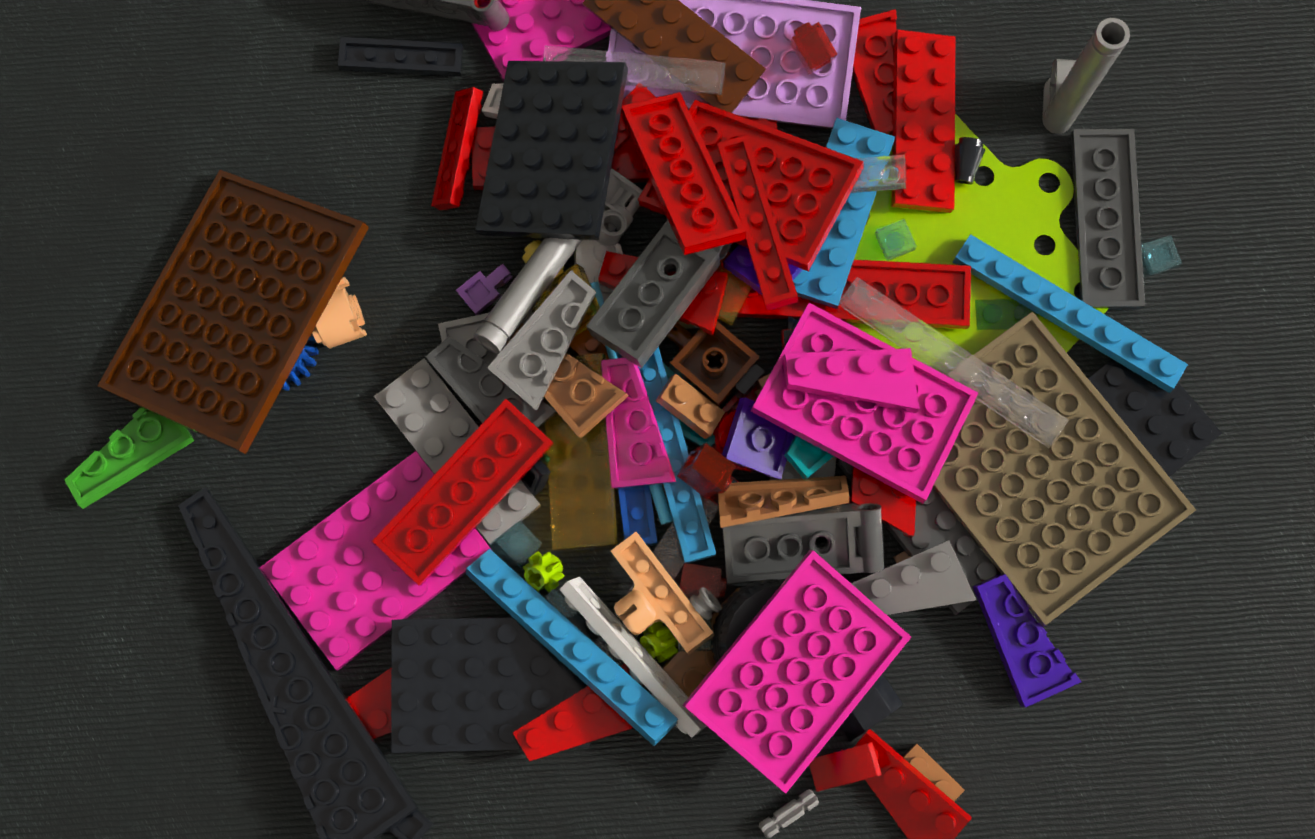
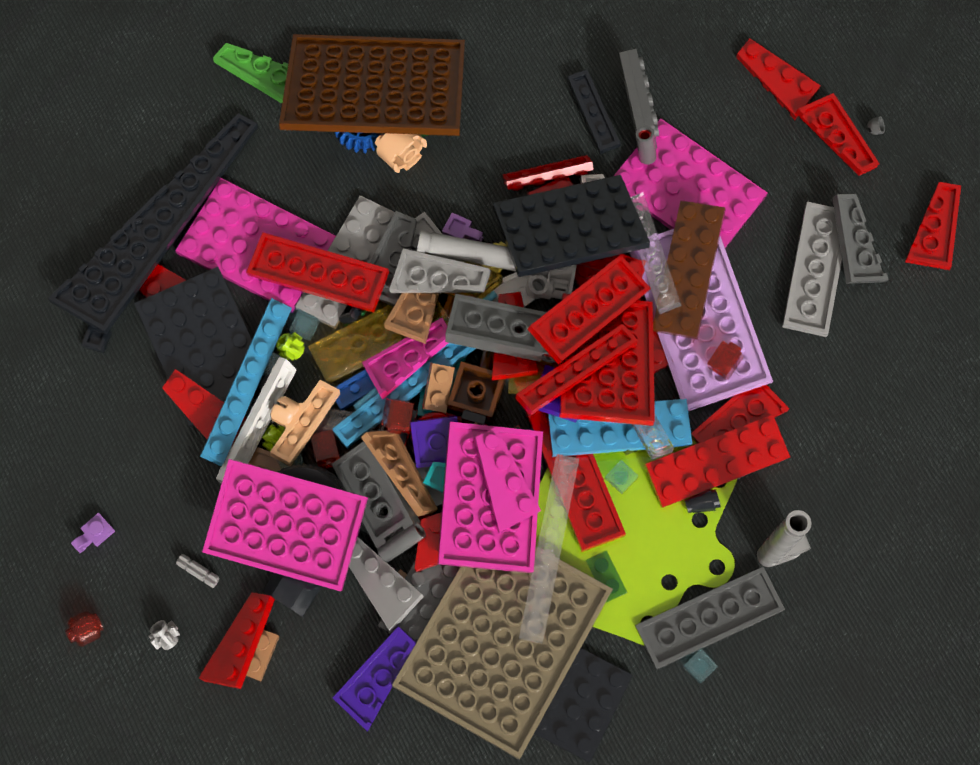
camera: 70 degrees right, 5 degrees down
(705, 603) = (309, 452): light grey bush -> none
(844, 767) = (241, 591): red slope -> none
(1071, 314) = (624, 618): dark azure plate -> none

